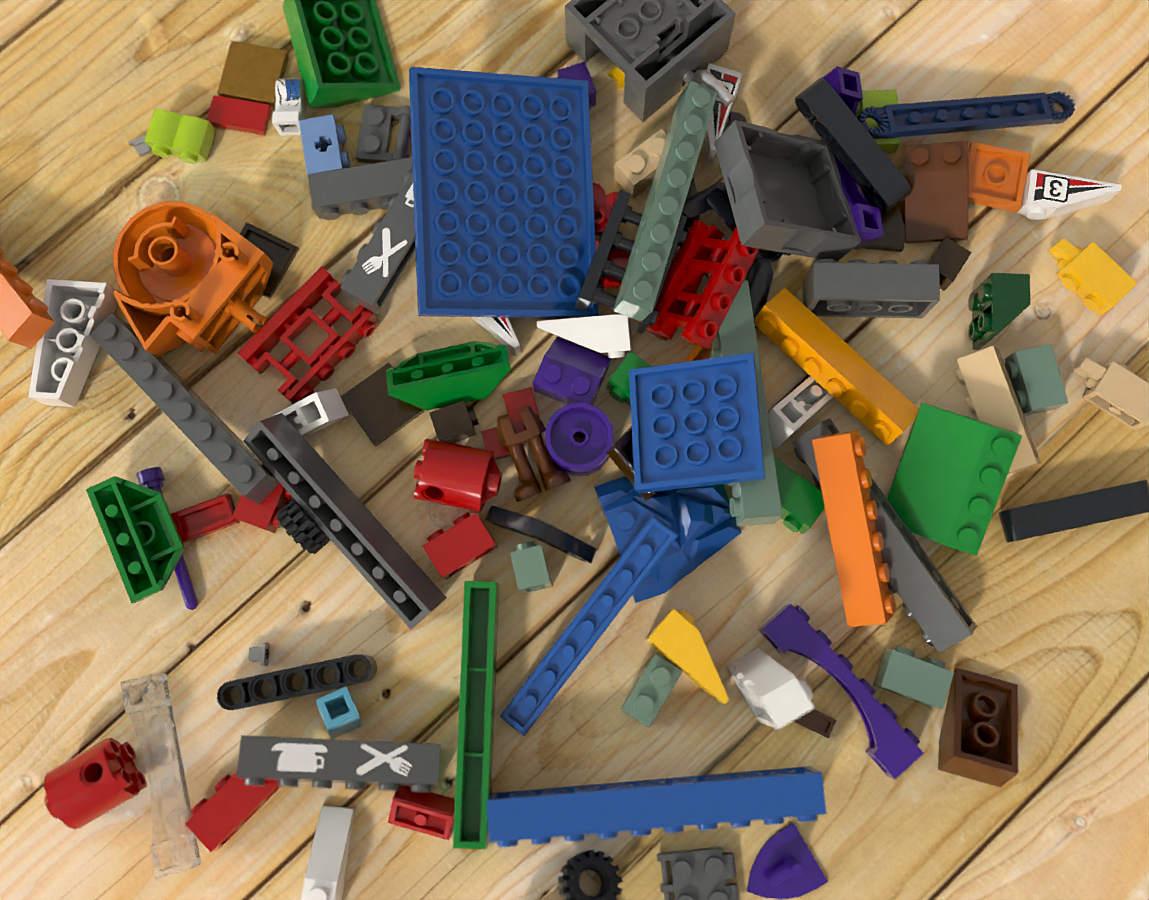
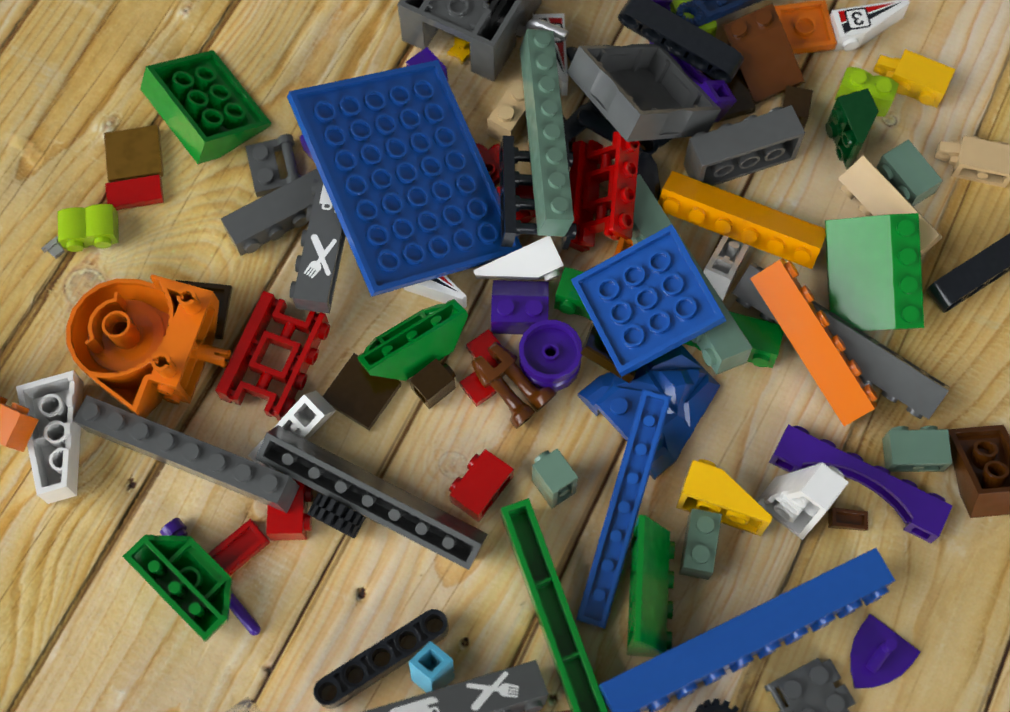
camera: 25 degrees left, 10 degrees down
(260, 654) = (335, 650): light grey piece -> none
(289, 106) = (179, 170): white leg -> none
(323, 134) = (219, 182): medium blue brick -> none
(456, 475) = (455, 424): red cylinder -> none
(541, 531) = (550, 439): black beam -> none
(578, 722) = (649, 589): none -> green slope
(1044, 275) = (881, 87): none -> lime brick

